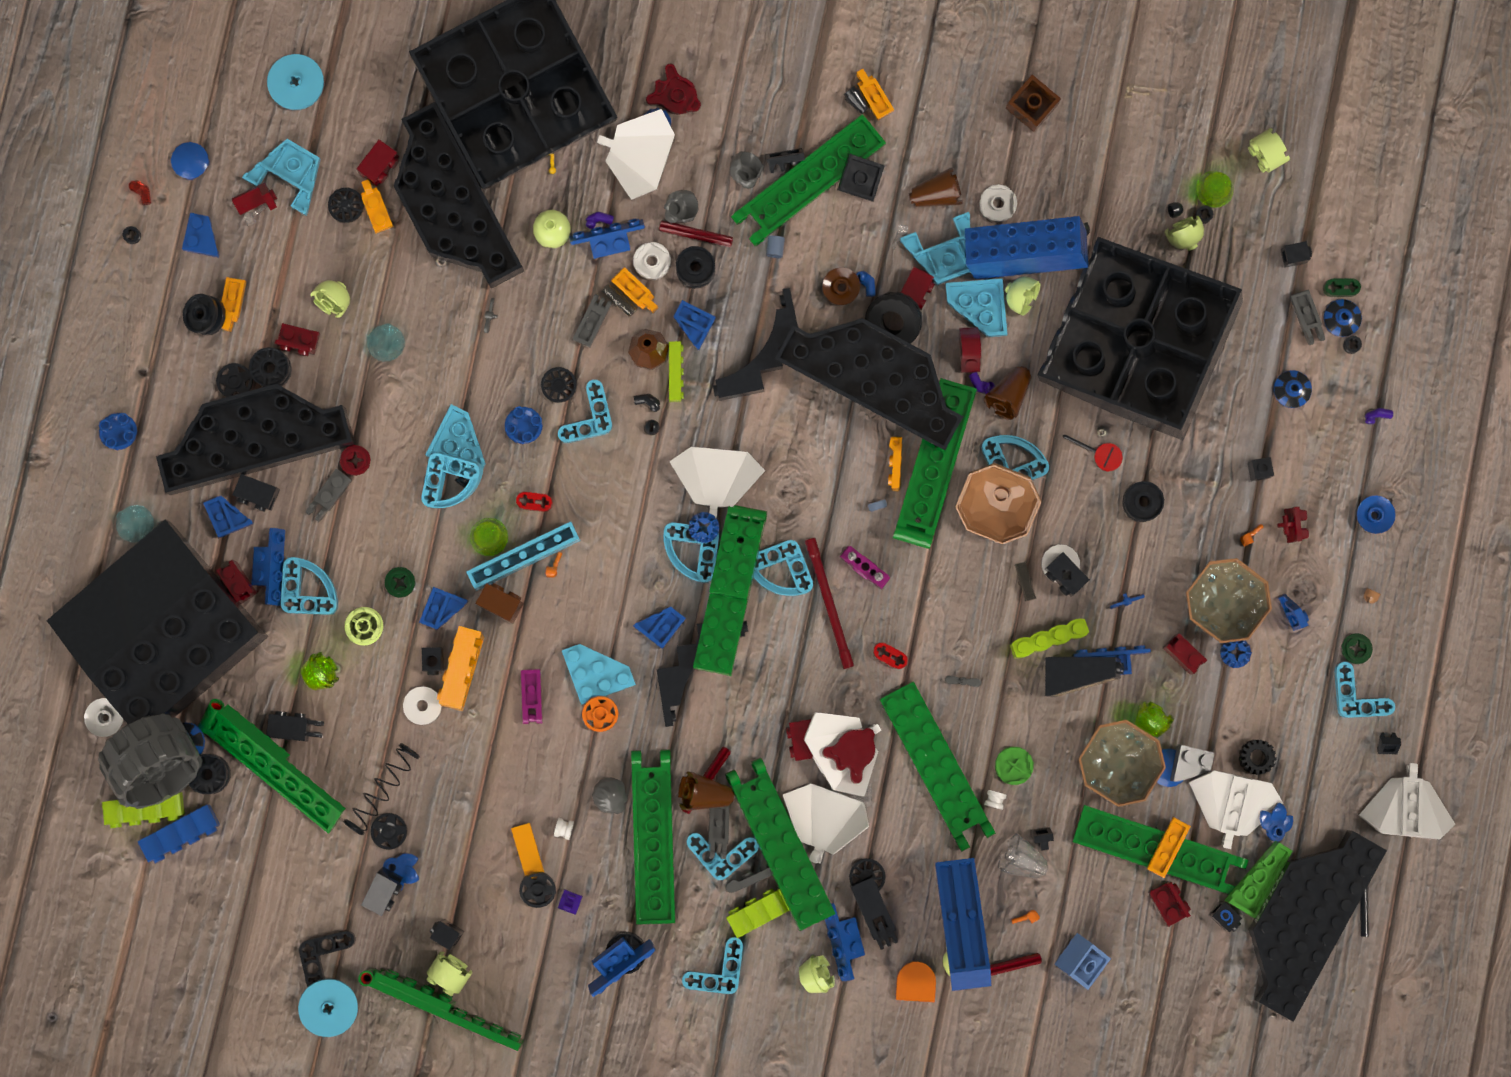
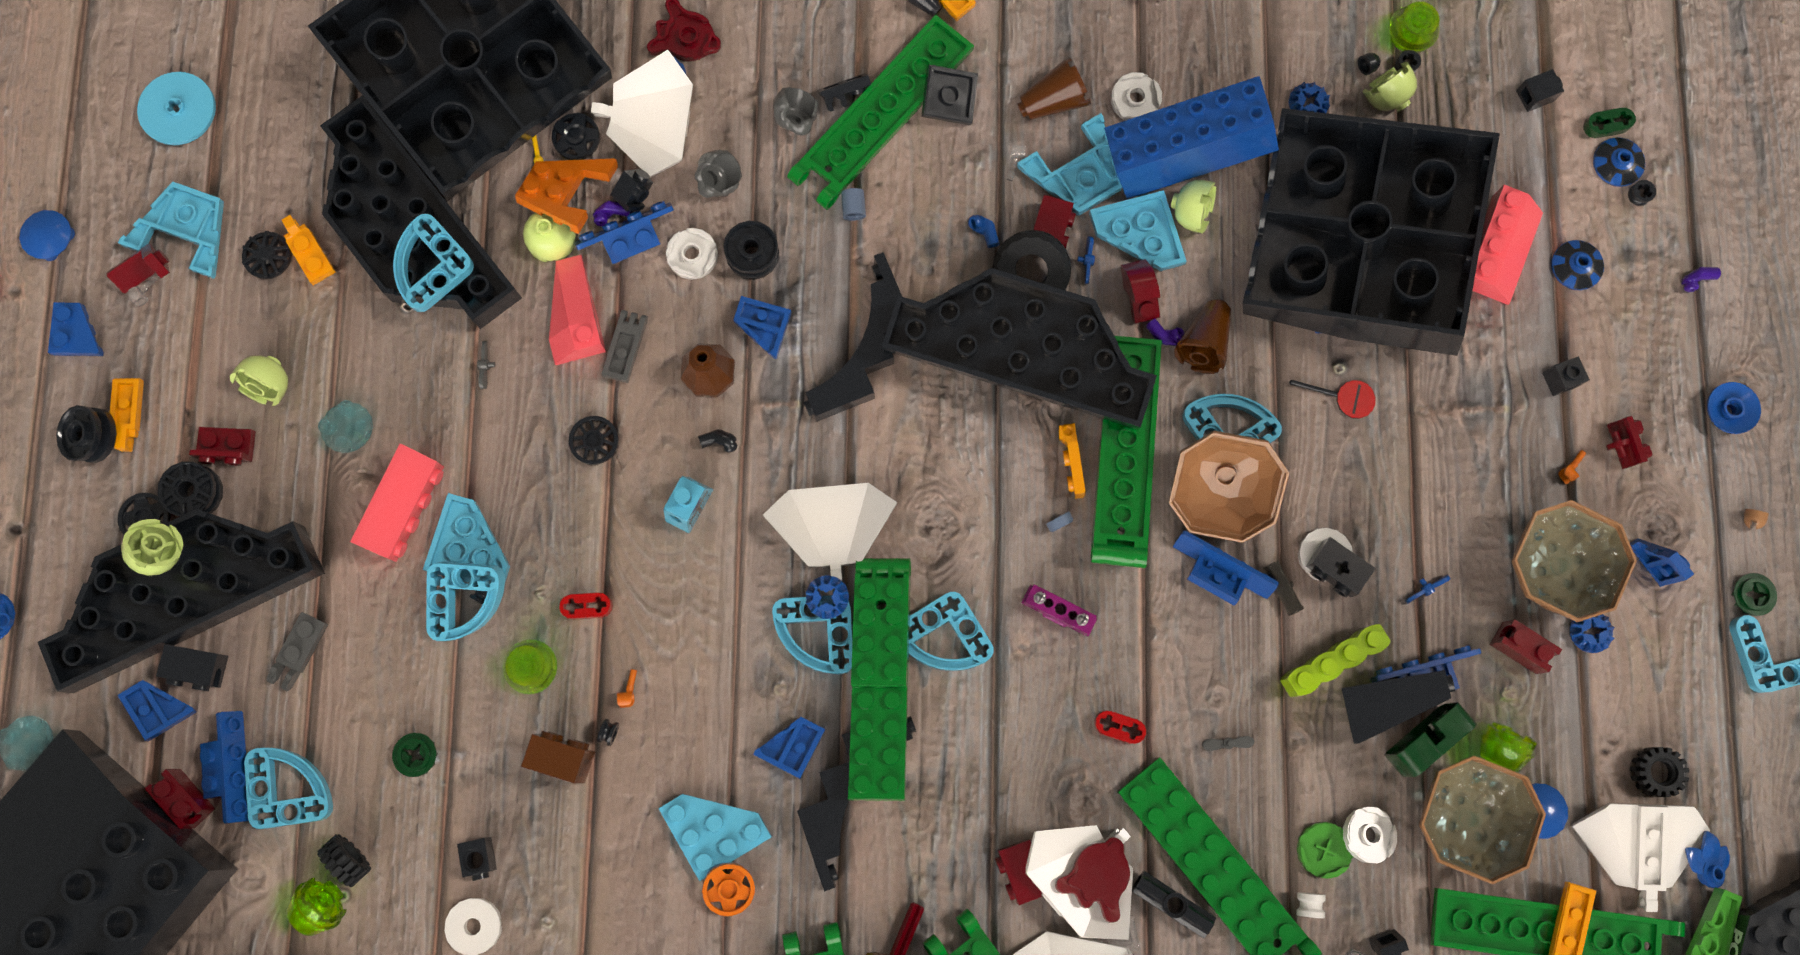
camera: 10 degrees left, 5 degrees down
(246, 406) = (151, 547): none -> yellowish green cylinder
(342, 644) = (344, 860): none -> black tyre
(349, 454) = (318, 588): dark red gear -> none
(364, 626) = (369, 828): yellowish green cone -> none
(378, 163) = (300, 191): dark red brick -> none
(416, 405) = (398, 503): none -> coral slope
(440, 608) = (477, 781): blue wing -> none
(461, 668) = (518, 863): light orange wedge -> none
(476, 243) = (447, 268): none -> medium azure beam
(523, 425) = (553, 503): blue dish -> none
(523, 556) = (581, 685): medium azure brick -> none
(531, 696) = (626, 882): magenta plate -> none
(535, 592) = (608, 732): none -> black bush
(558, 296) = (574, 320): none -> coral wedge
(560, 193) = (554, 183): none -> orange wing
(582, 157) = (575, 136): none -> black wheel
(593, 423) = (650, 483): medium azure beam -> none
(617, 207) = (632, 189): none -> black brick
(617, 443) = (686, 503): none -> medium azure torso
(619, 300) = (656, 312): clear smoke pin -> none
(634, 290) = (675, 295): light orange hinge -> none
(656, 428) = (737, 474): black hinge -> none
(675, 371) = (750, 393): lime piece -> none
(695, 233) = (744, 207): dark red axle -> none
(814, 554) = (1054, 733): dark red piece -> none
(834, 279) = (949, 227): reddish brown dish -> none
(892, 772) = (1188, 913): none -> black piece
(937, 319) = (1088, 258): none -> blue piece
(983, 562) = (1221, 572): none -> blue bracket
(1036, 764) = (1355, 835): none -> white tile
(1101, 704) = (1430, 739): none -> dark green axle
(1124, 239) = (1297, 98): none -> blue gear
(1131, 501) = (1429, 437): black wheel -> none
(1190, 763) = (1570, 799): wing -> none
(1240, 365) = (1505, 243): none -> coral slope
(1307, 315) = (1575, 167): dark grey hinge -> none

